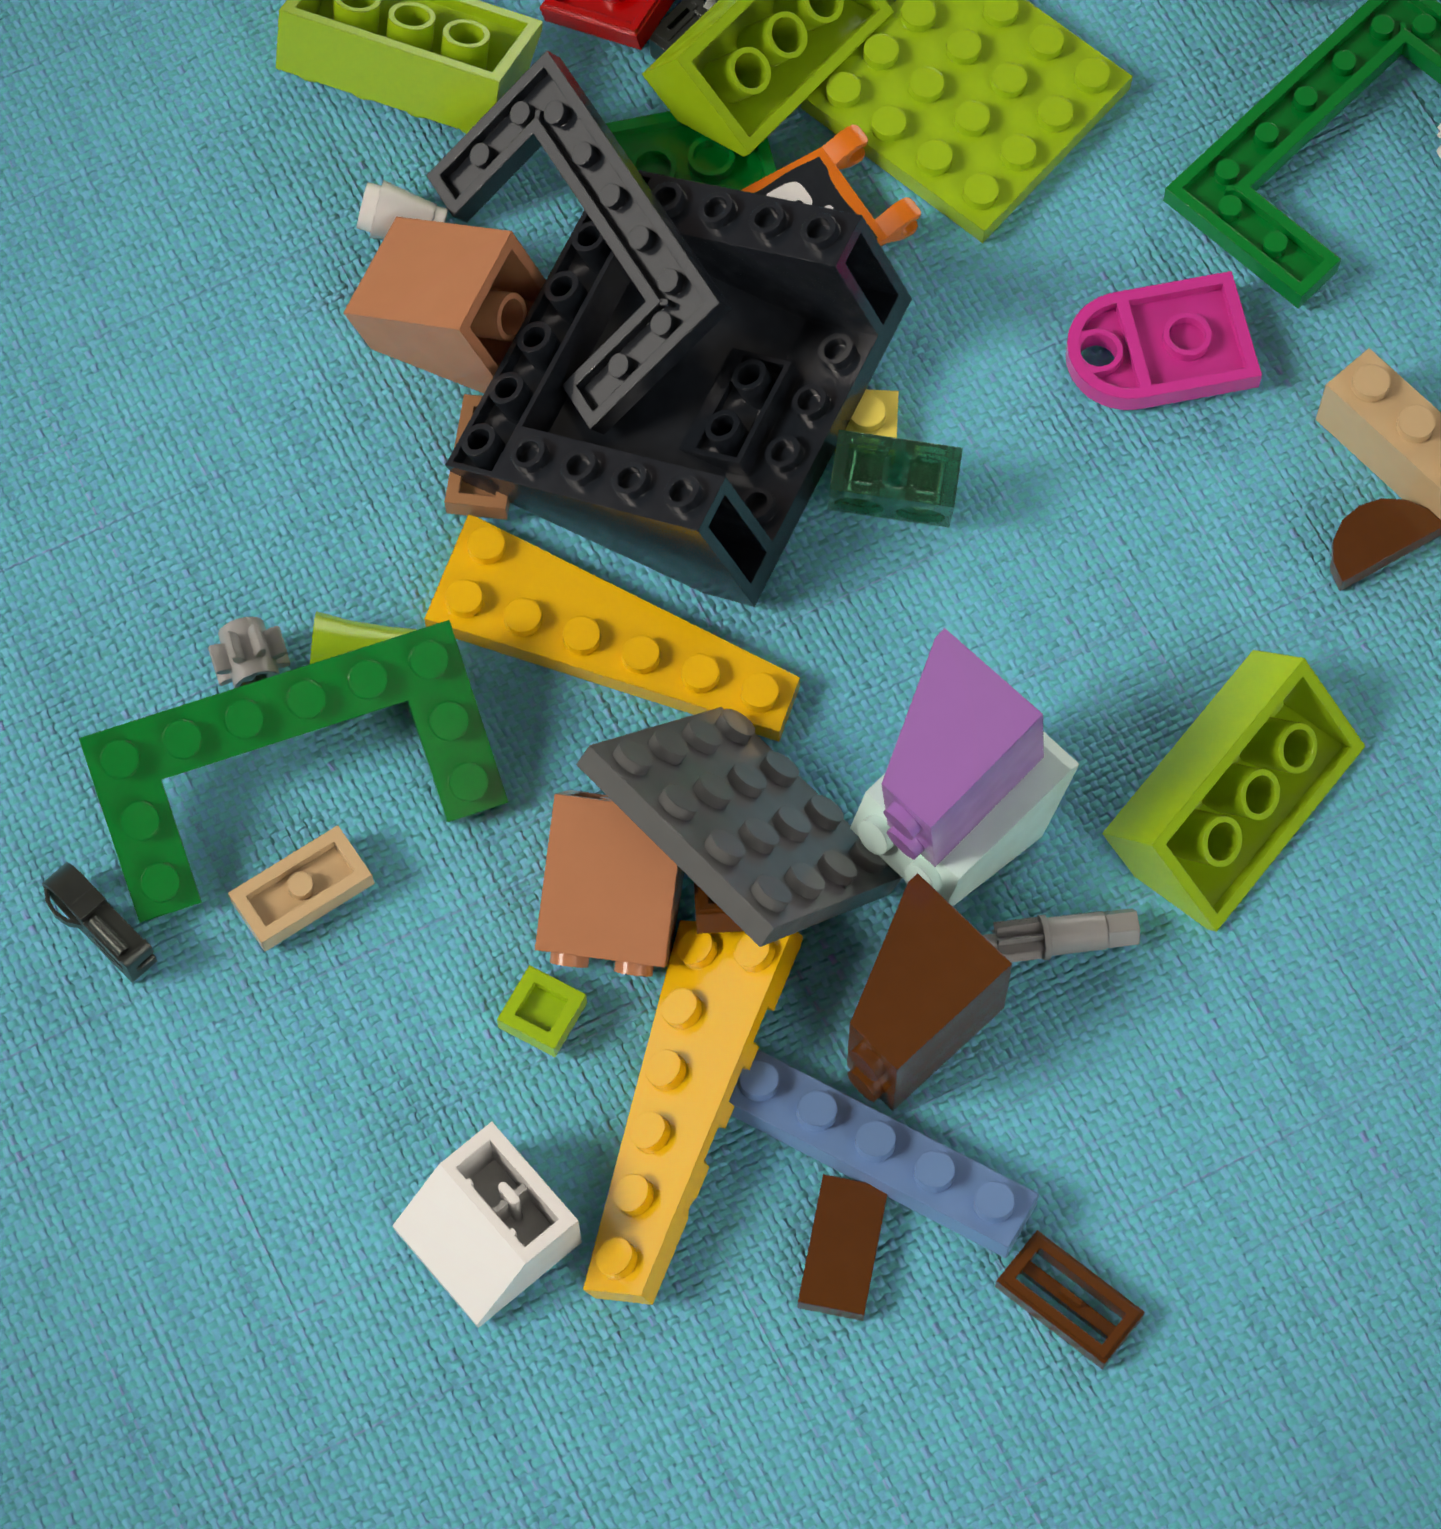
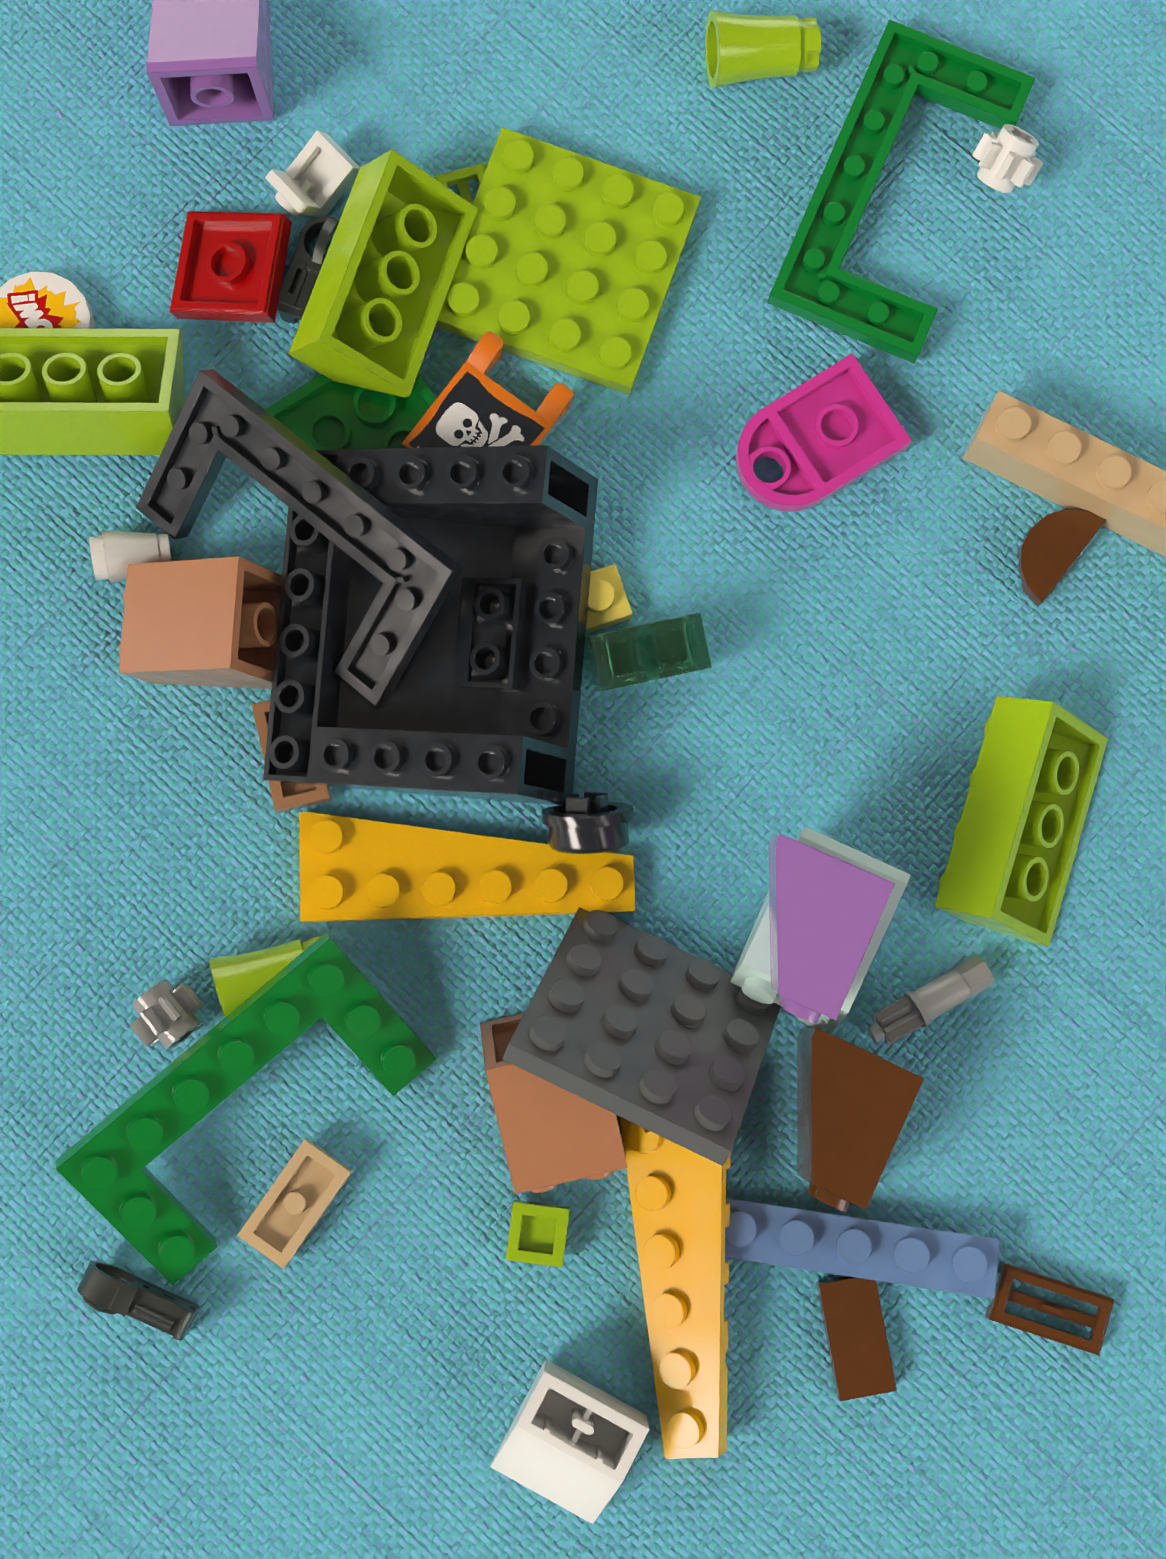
camera: 25 degrees left, 15 degrees up
(763, 622) = (588, 824): none -> black piece

